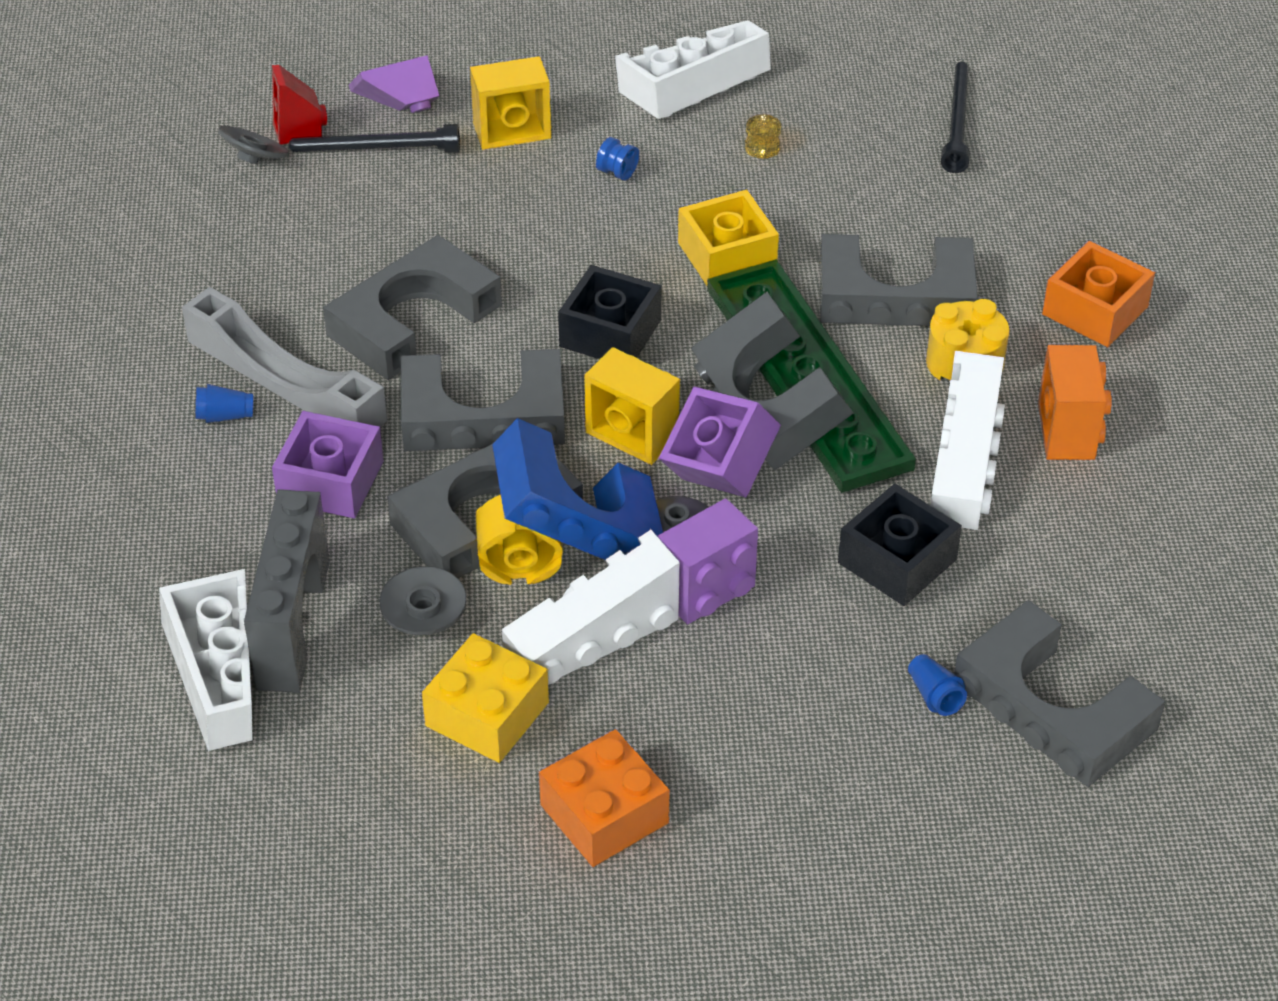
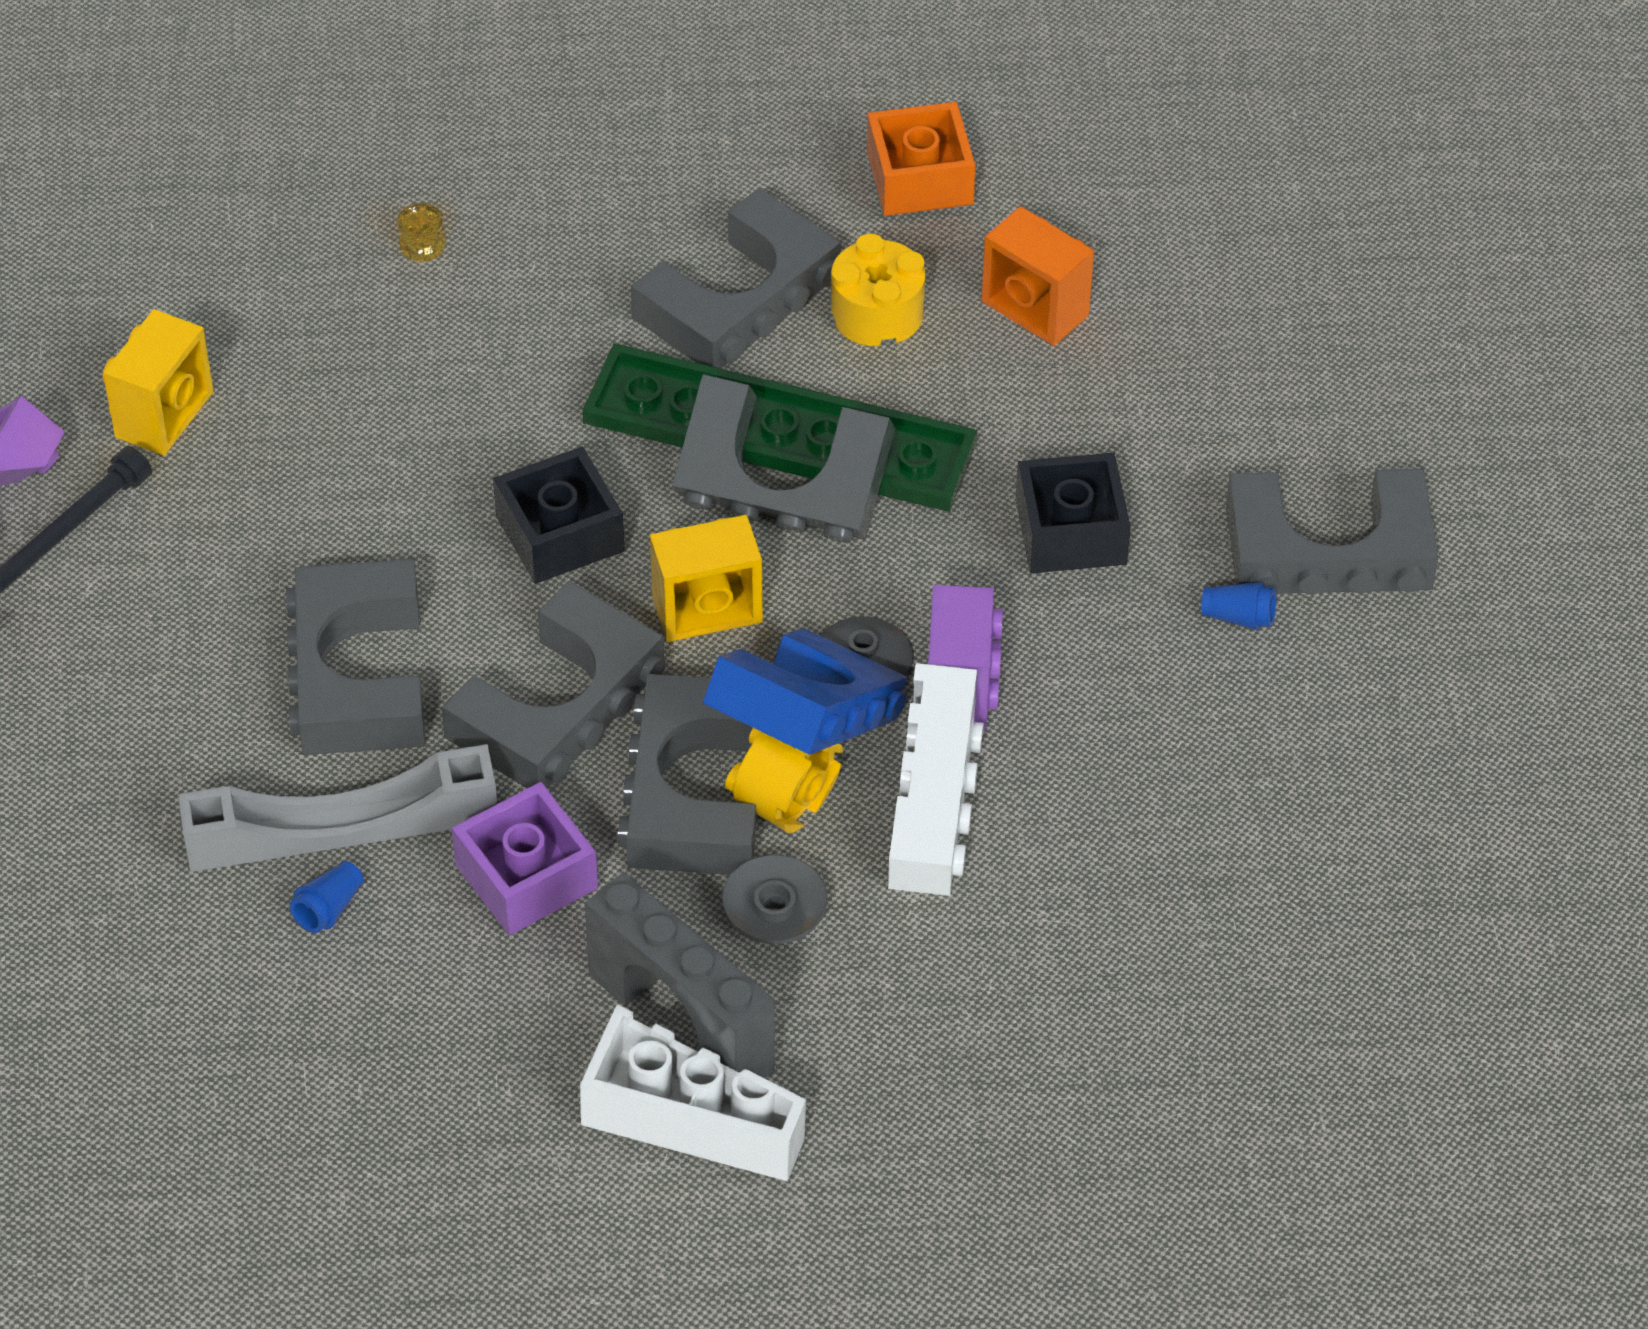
camera: 50 degrees left, 5 degrees up
(485, 697) = (945, 926): yellow brick -> none
(604, 797) = (1145, 916): orange brick -> none
(617, 158) = (325, 360): blue wheel -> none
(693, 68) = (267, 221): white wedge -> none
(720, 441) = (831, 545): medium lavender brick -> none
(726, 234) = (549, 356): yellow brick -> none
(955, 154) = (612, 117): black piece -> none
(969, 439) = (997, 376): white wedge -> none

